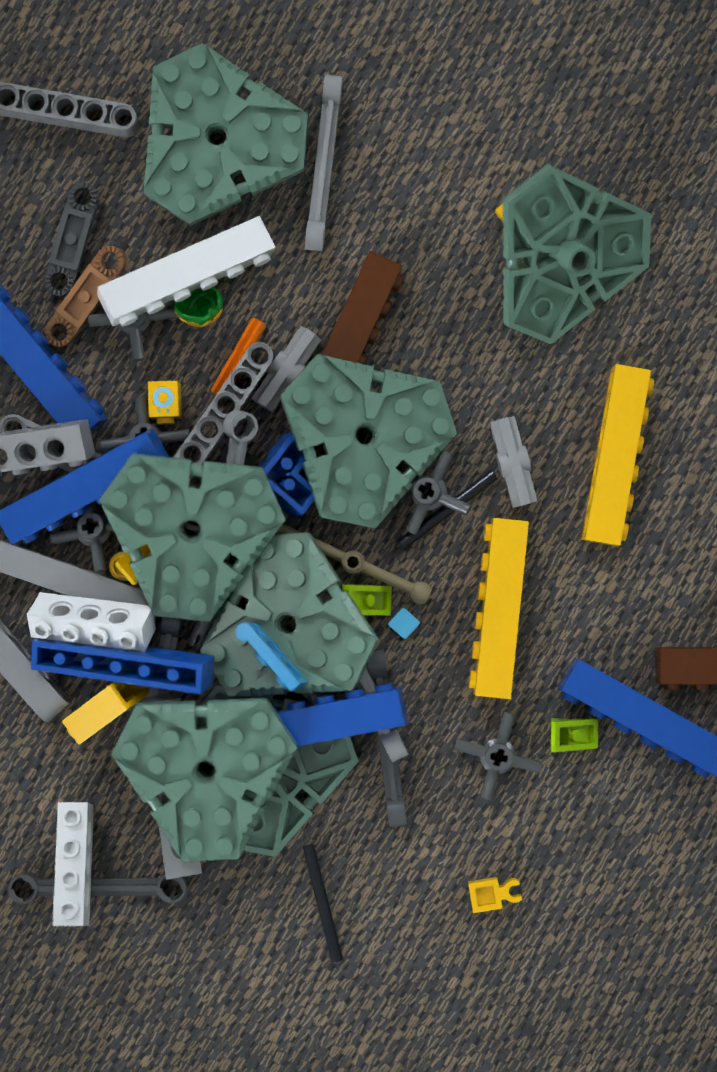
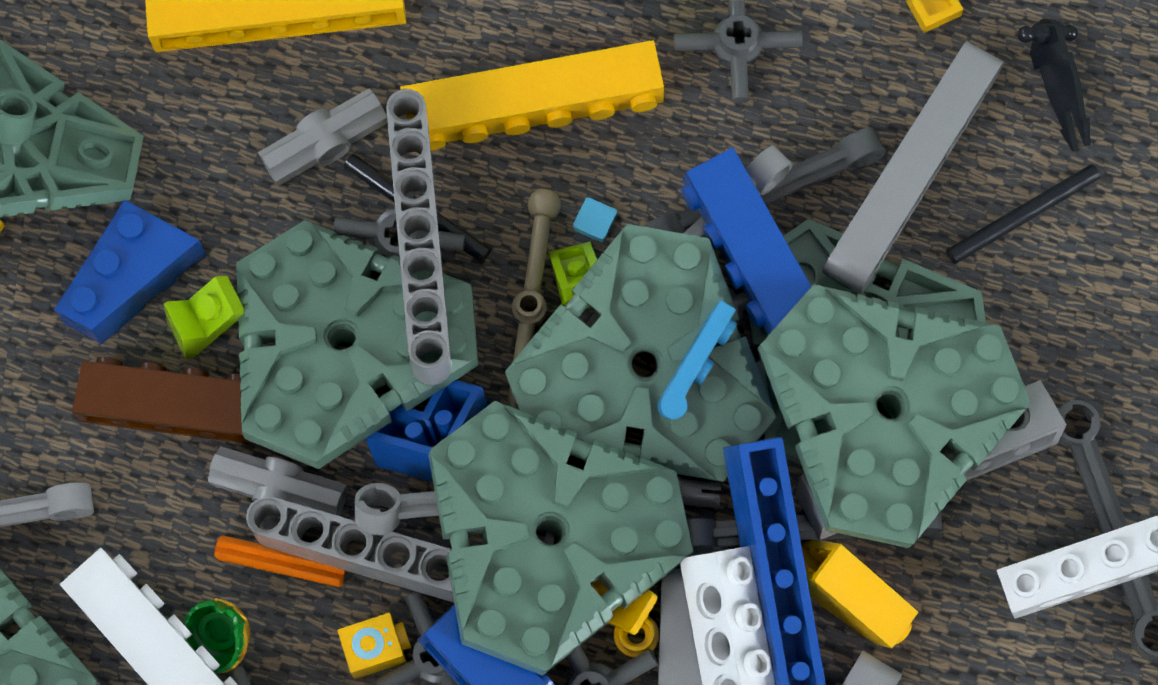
camera: 105 degrees left, 15 degrees down
(371, 842) = (912, 168): none -> light grey beam
(407, 960) = (1059, 75): none -> black piece
(409, 352) = (203, 316): none -> lime slope
(427, 506) = (421, 253): none -> light grey beam
(457, 308) = (125, 271): none -> blue wedge

